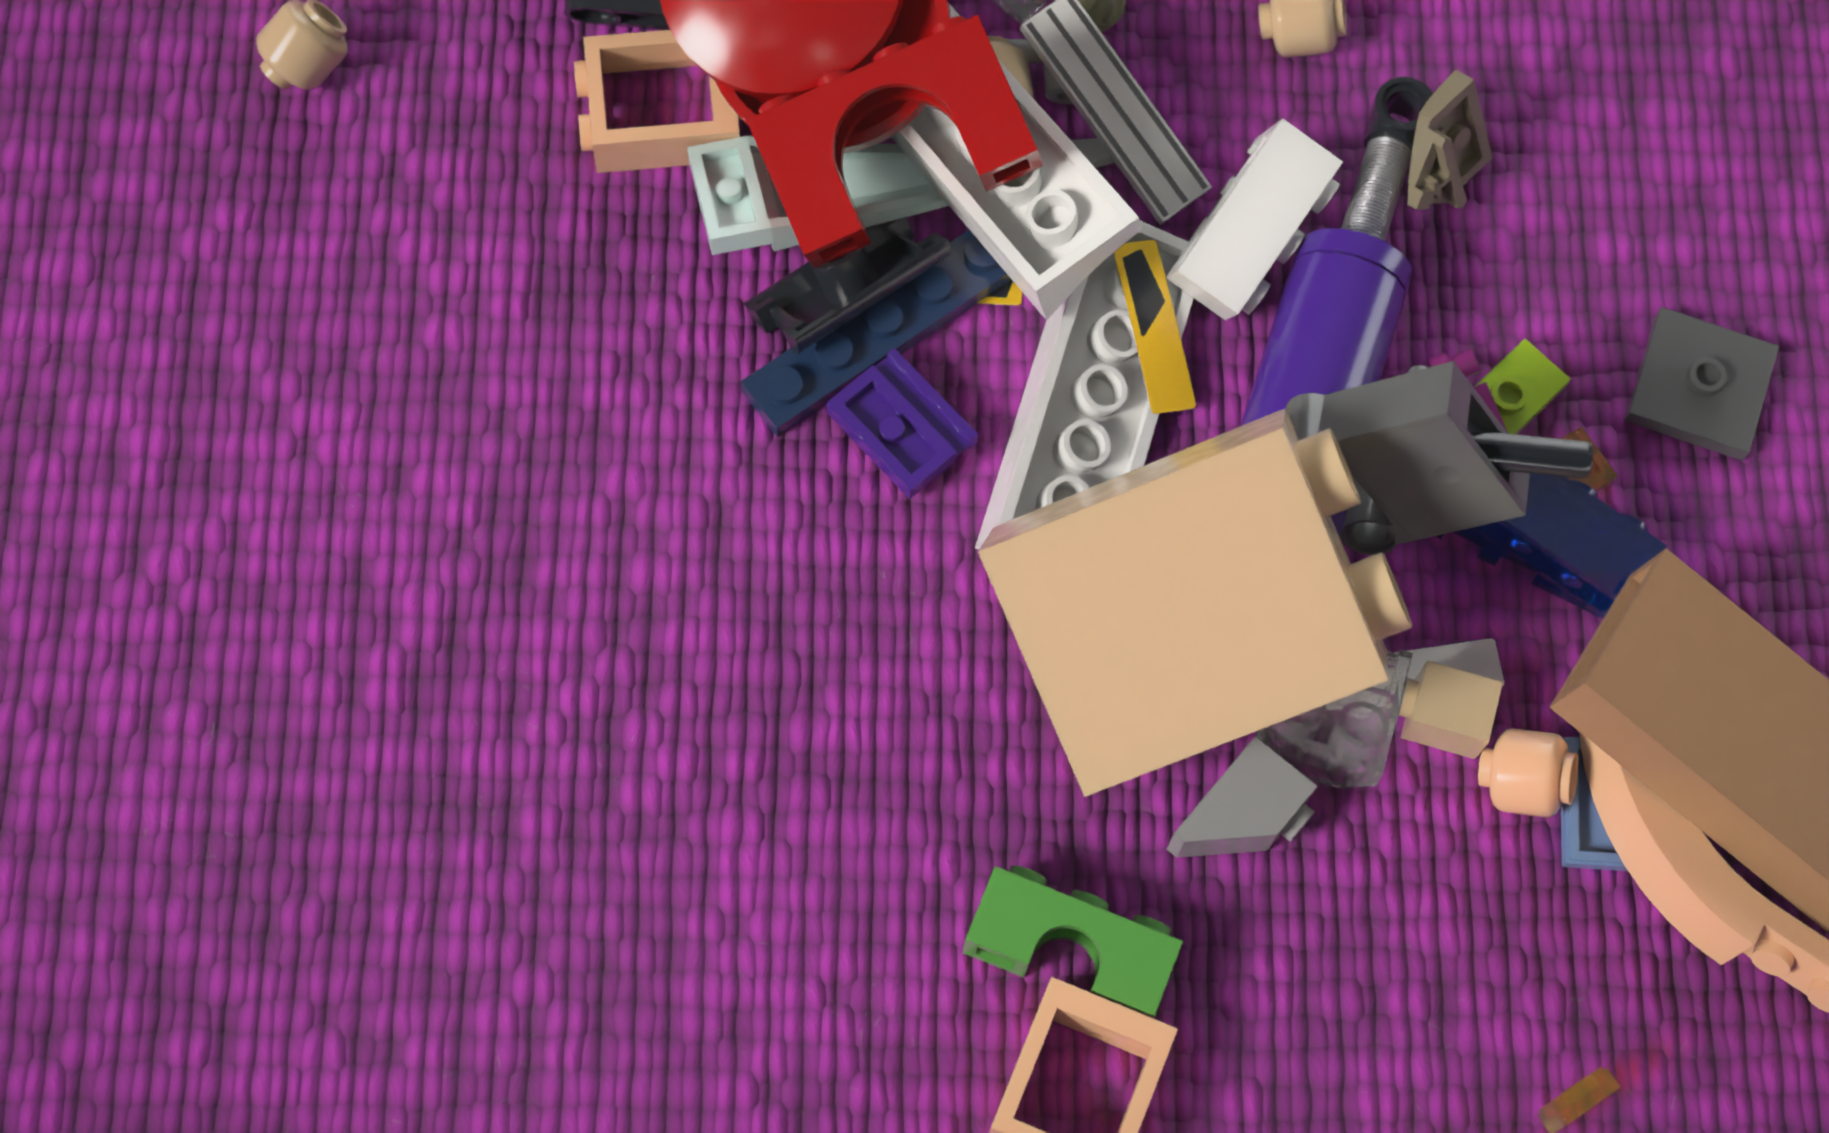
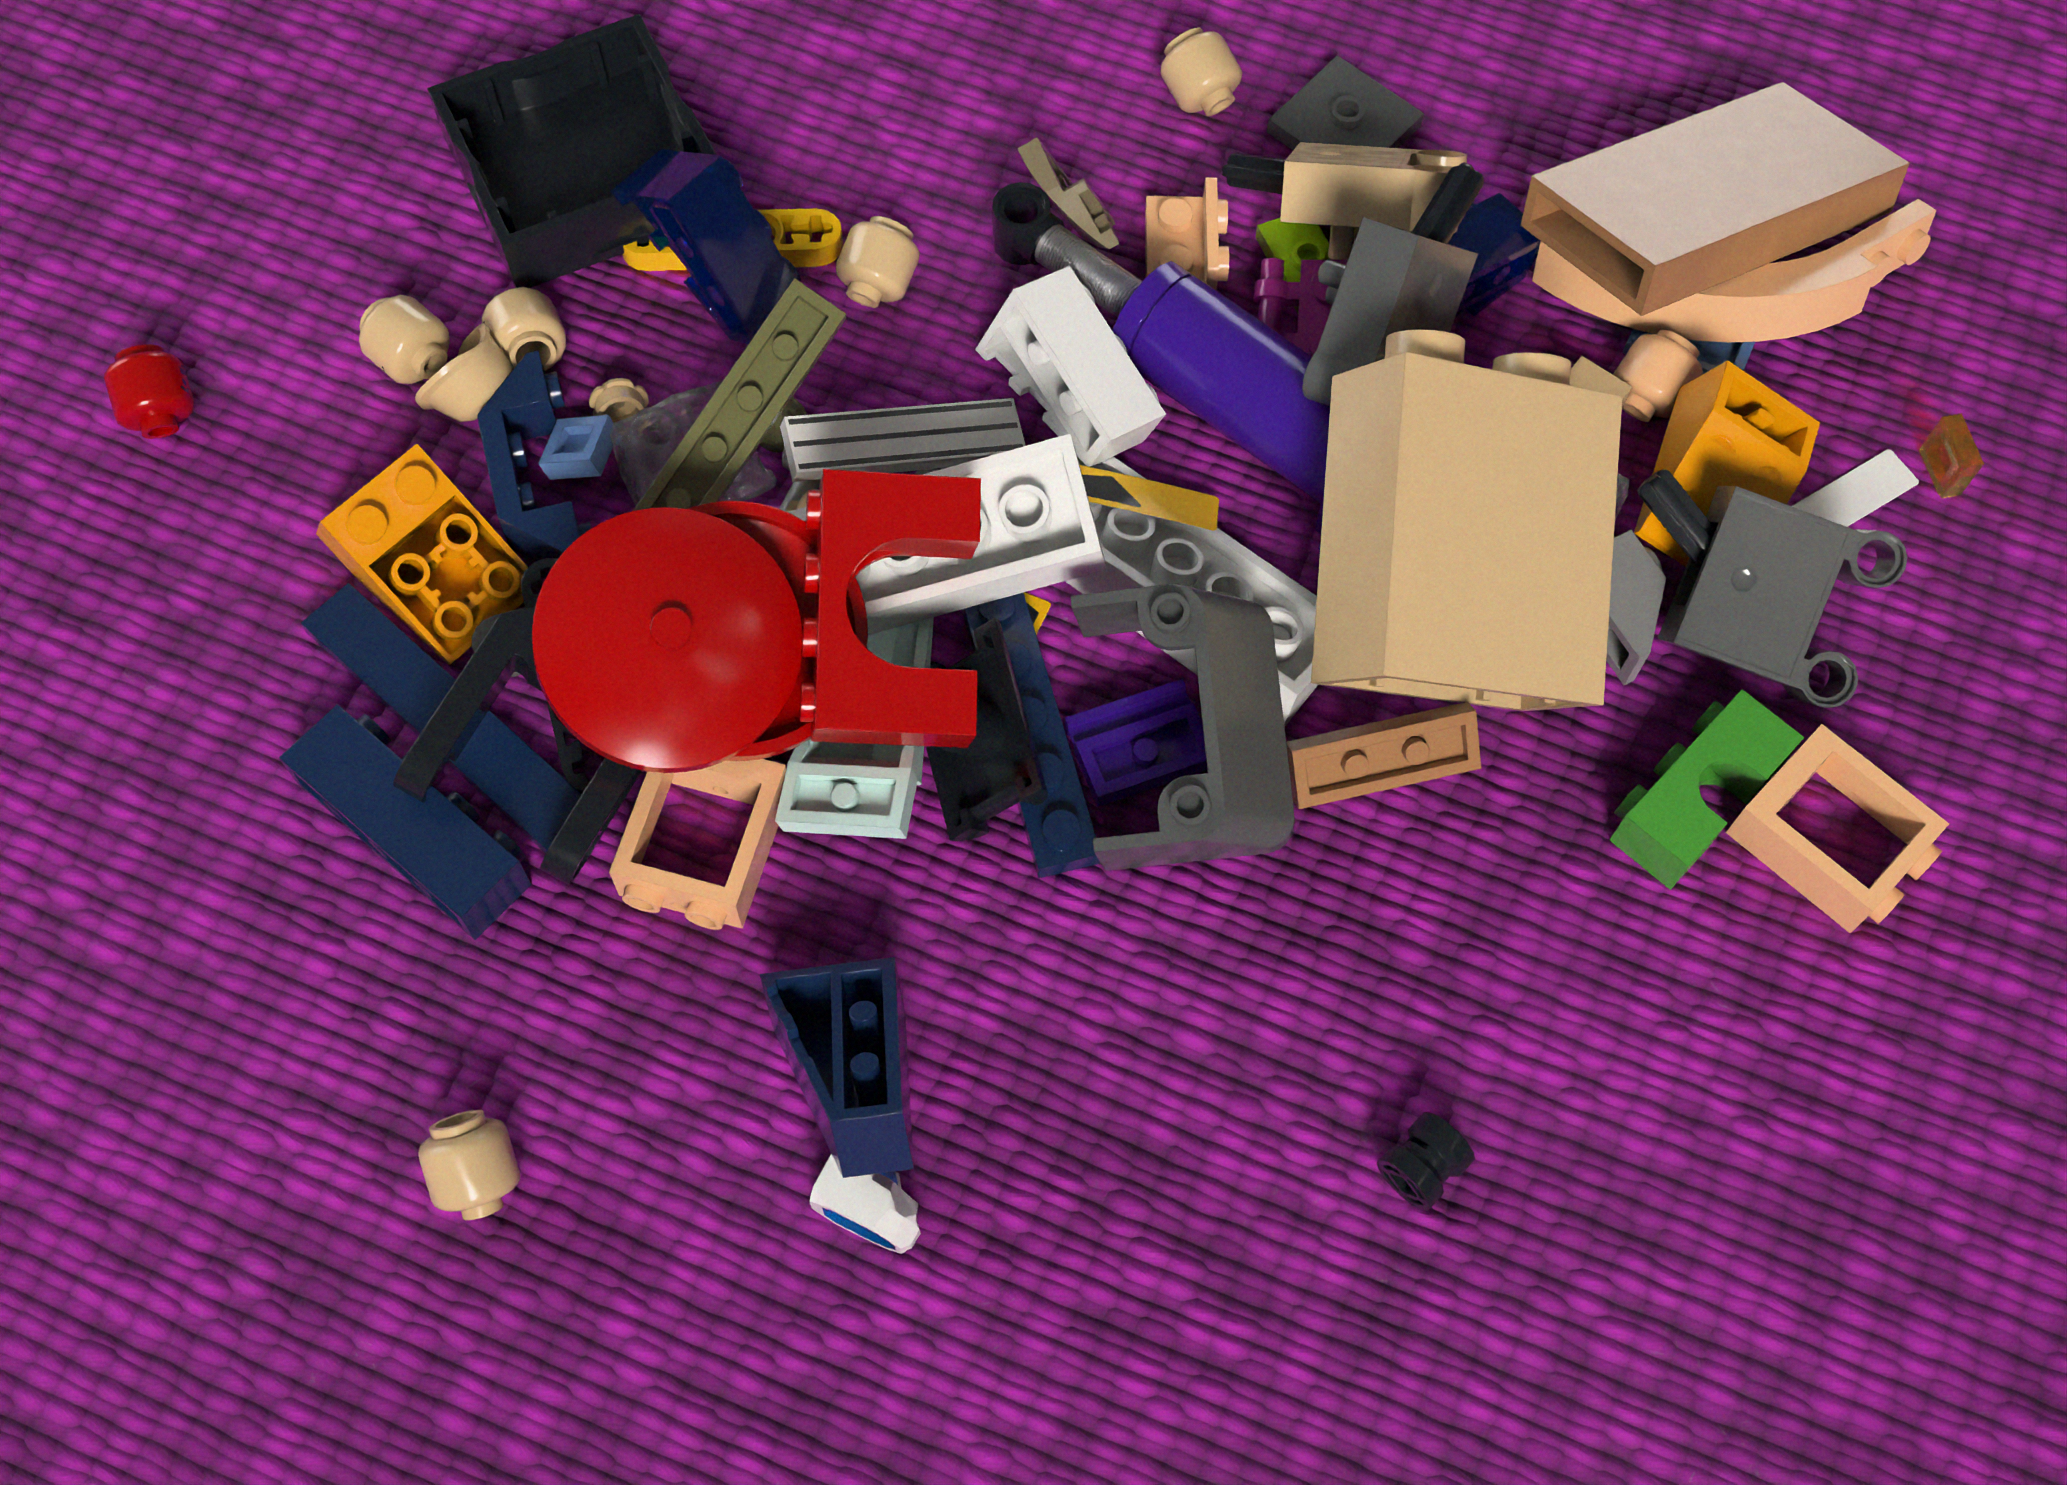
camera: 65 degrees left, 5 degrees down
(386, 350) = (867, 1206): none -> white rock
(486, 285) = (850, 1058): none -> dark blue wedge
(590, 795) = (1426, 1161): none -> black wheel
(933, 476) = (1247, 793): none -> dark grey windscreen
(973, 635) = (1383, 755): none -> medium nougat plate
(1301, 918) = (1762, 583): none -> dark grey piece
(1425, 862) = (1730, 434): none -> light orange slope
(1469, 280) = (1188, 233): none -> light nougat bracket
(1477, 1009) = (1861, 490): none -> white sticker
(1594, 388) = (1345, 184): none -> tan piece
(1681, 222) = (1201, 71): none -> tan head

